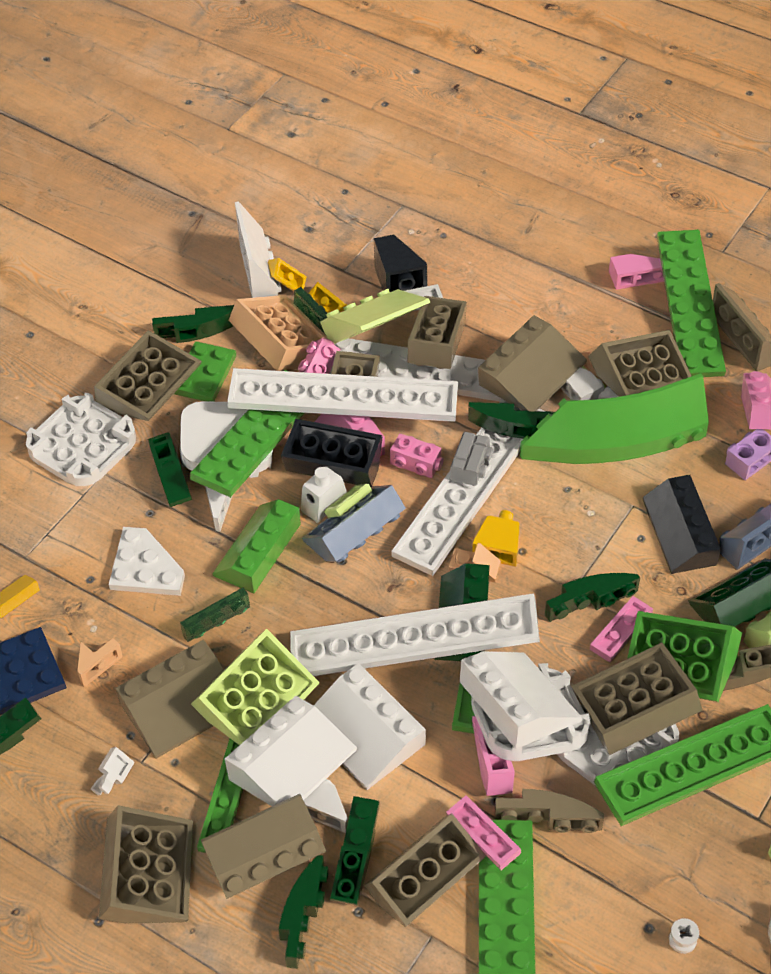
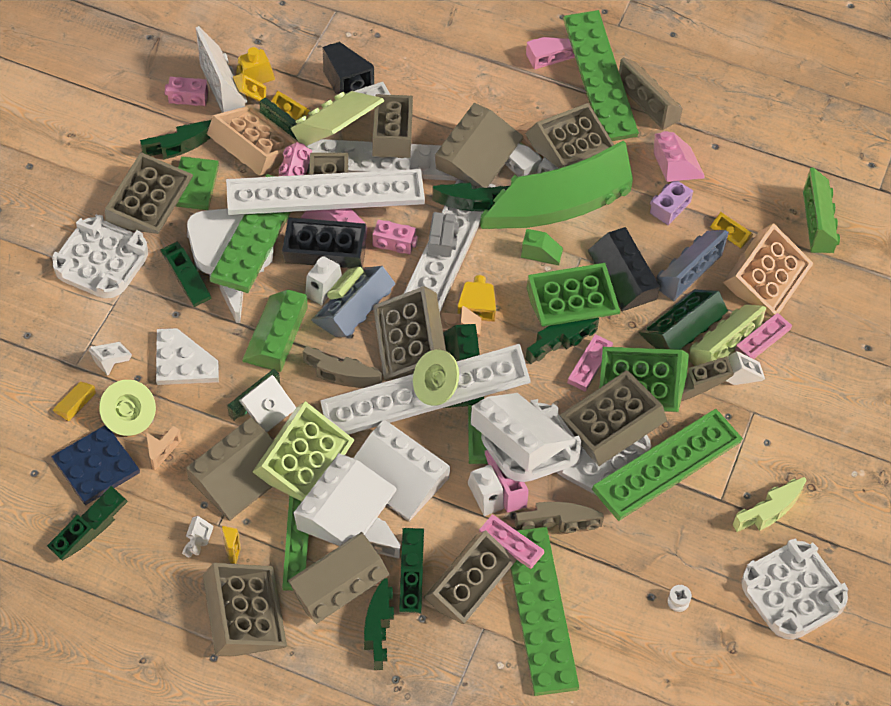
camera: 15 degrees left, 5 degrees up
(61, 548) = (108, 354): none -> white slope
(67, 610) = (127, 407): none -> yellowish green hat
(147, 786) = (231, 543): none -> yellow slope
(218, 272) = (187, 91): none -> bright pink brick
(227, 627) = (268, 403): none -> white plate
(298, 252) = (255, 65): none -> yellow torso
(328, 603) = (346, 373): none -> dark tan slope
(410, 566) = (407, 330): none -> dark tan slope
(425, 620) = (435, 377): none -> yellowish green hat
(465, 758) = (484, 485): none -> white torso
(585, 487) = (541, 247): none -> bright green slope
(612, 545) = (572, 294): none -> bright green slope

